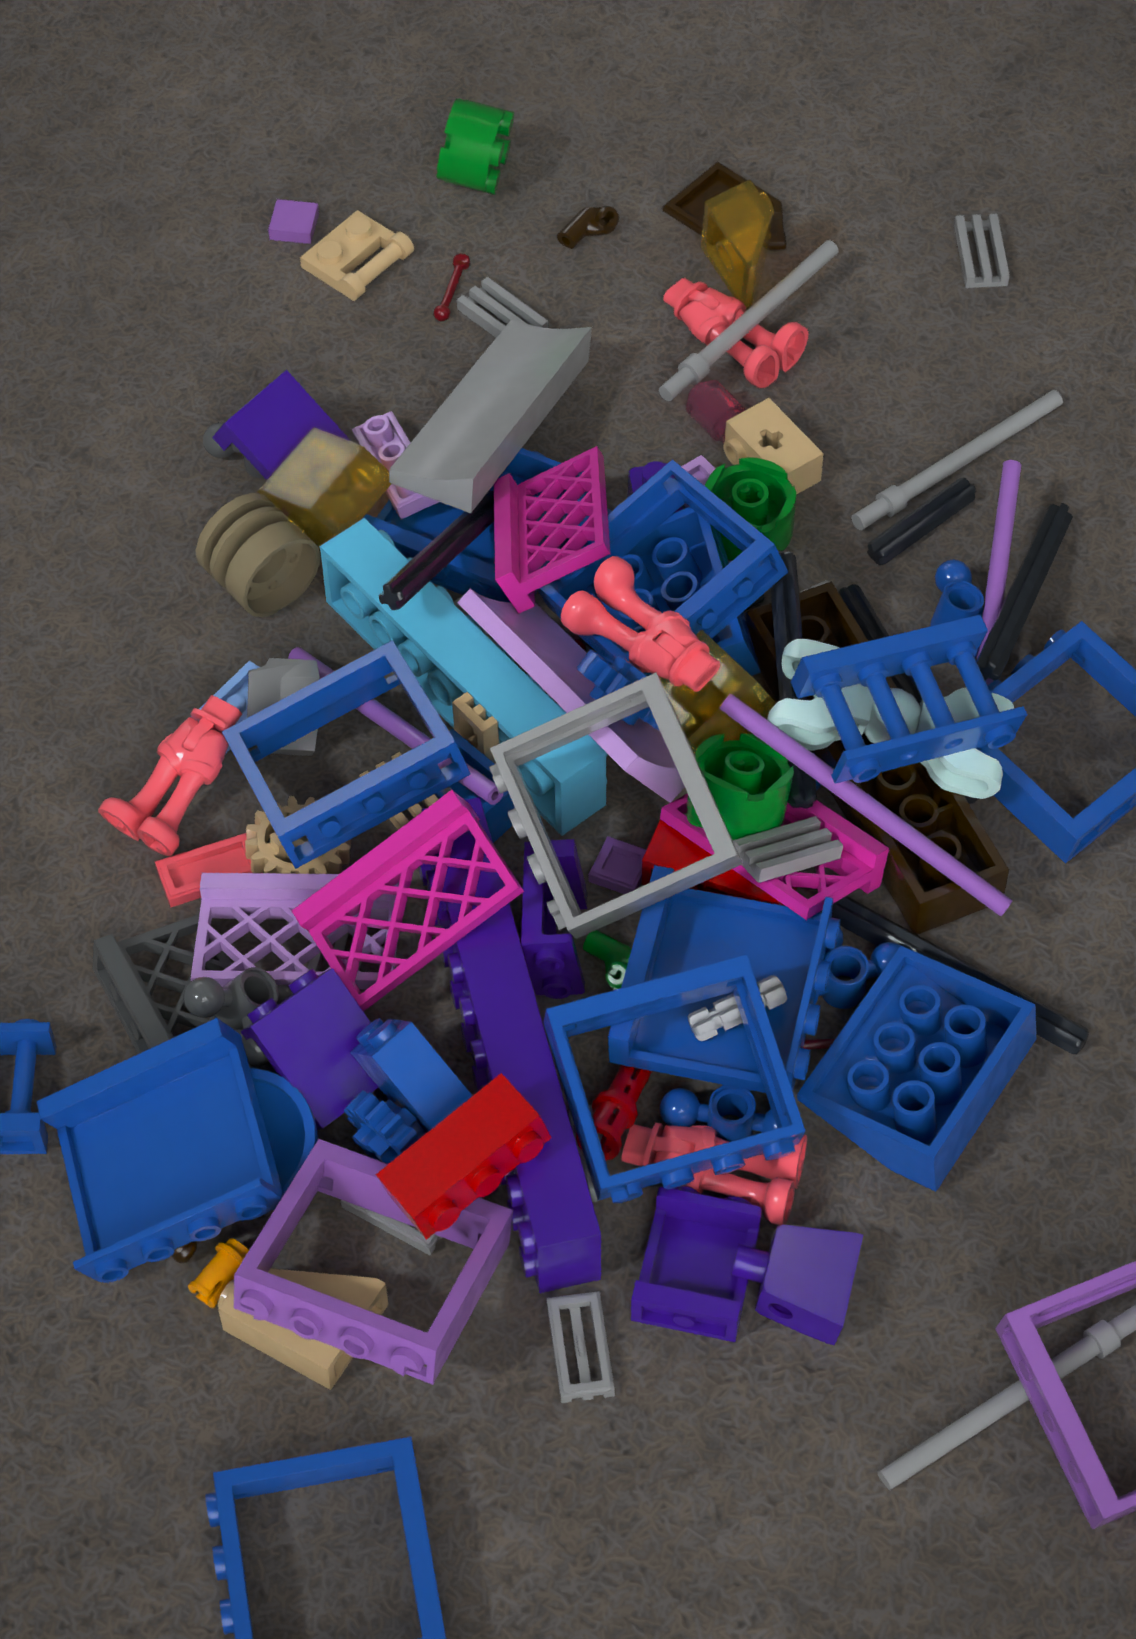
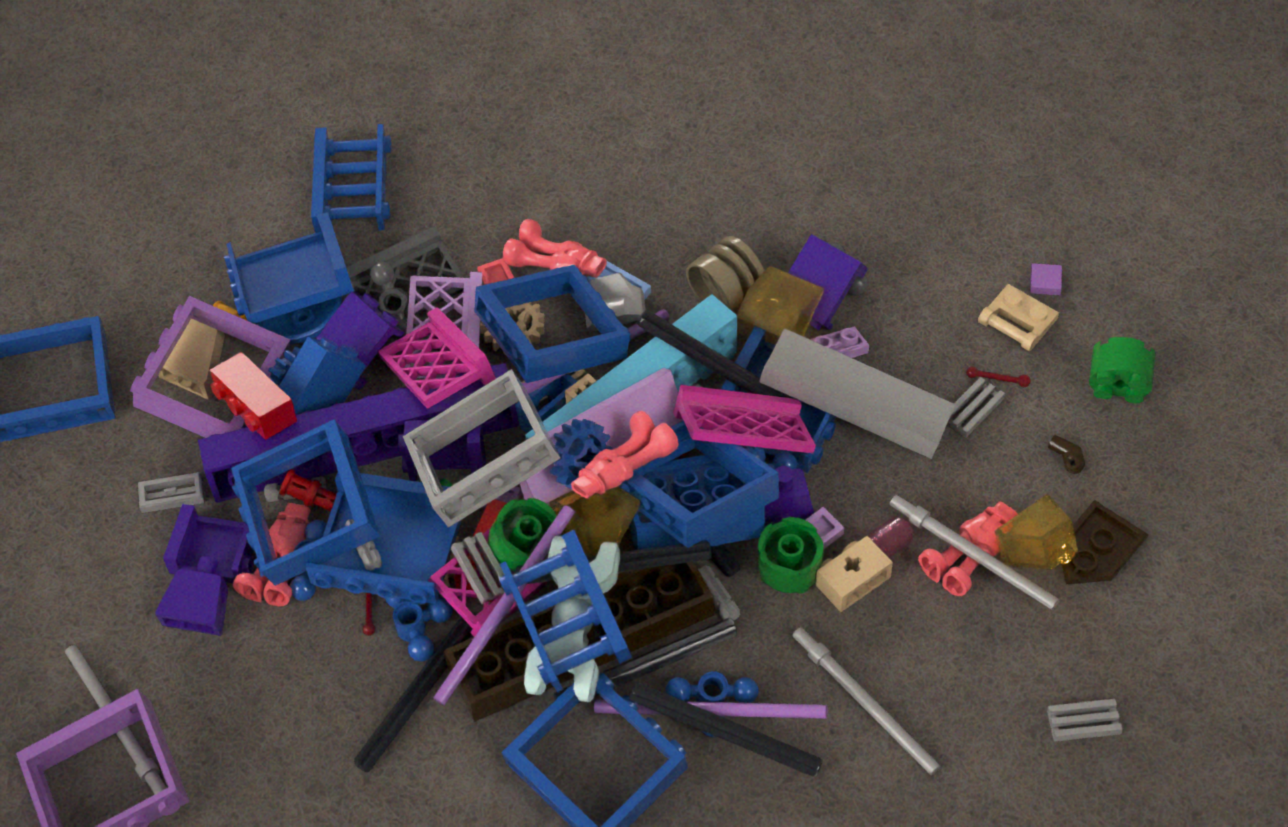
camera: 90 degrees right, 0 degrees up
(920, 1065) = (335, 661): blue slope -> none
(921, 521) = (802, 674): black axle -> none

